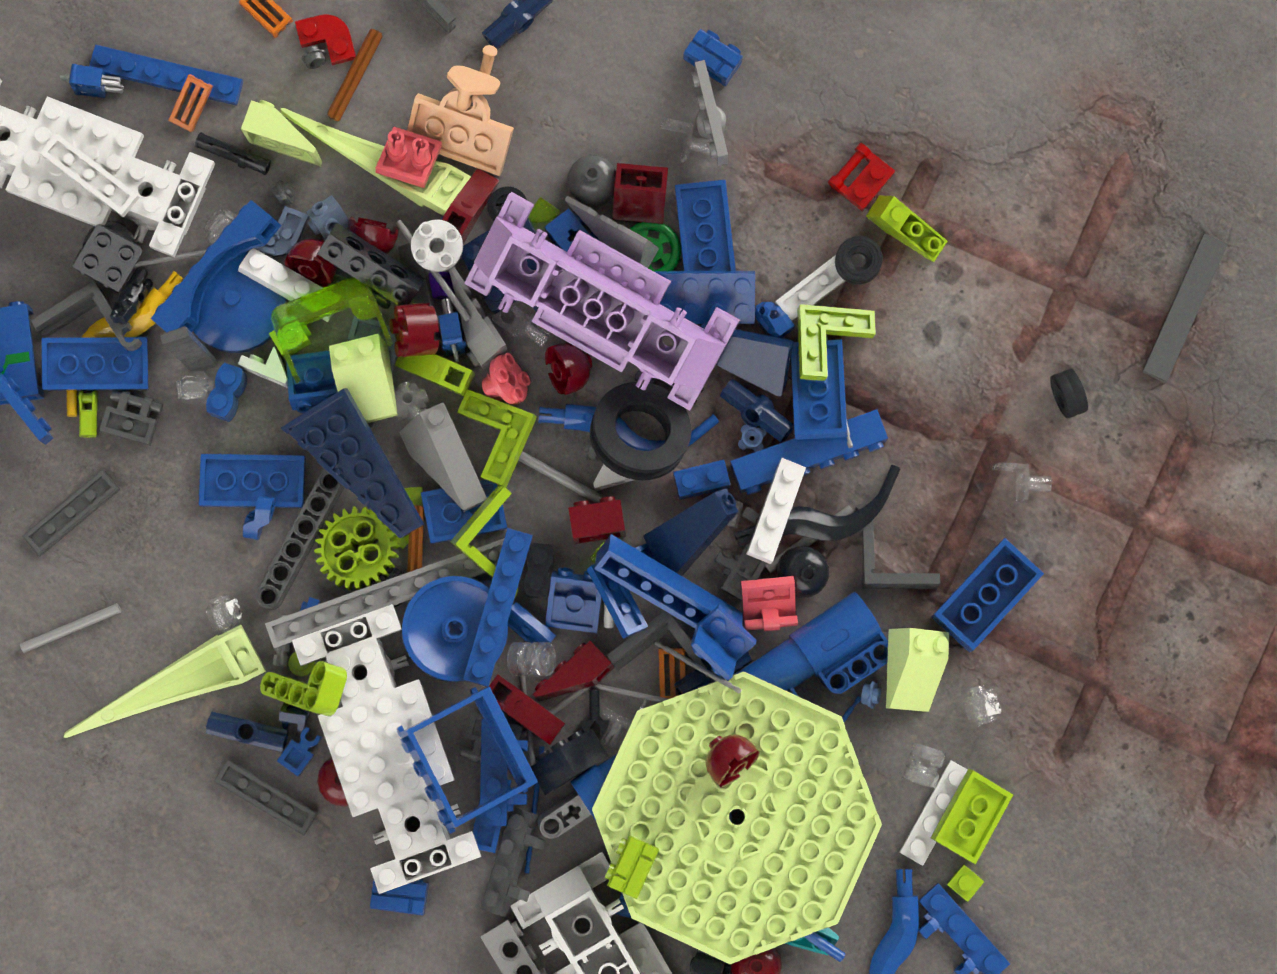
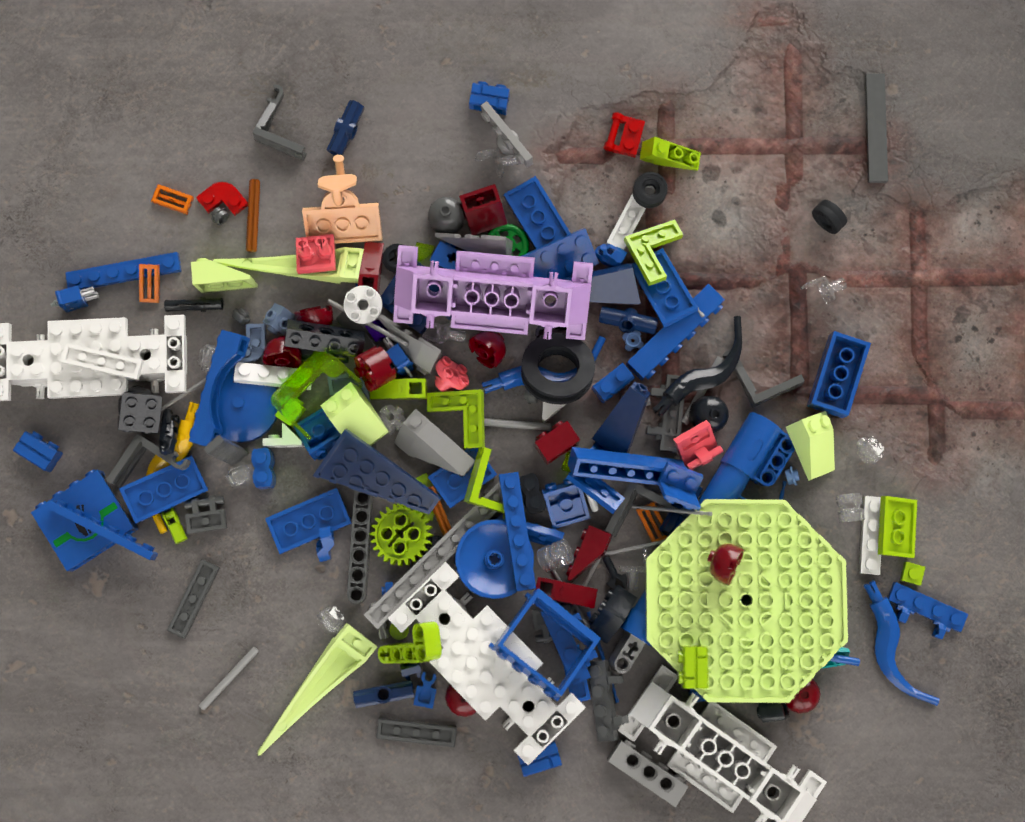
camera: 25 degrees left, 0 degrees up
(776, 511) = (674, 381): white plate -> none

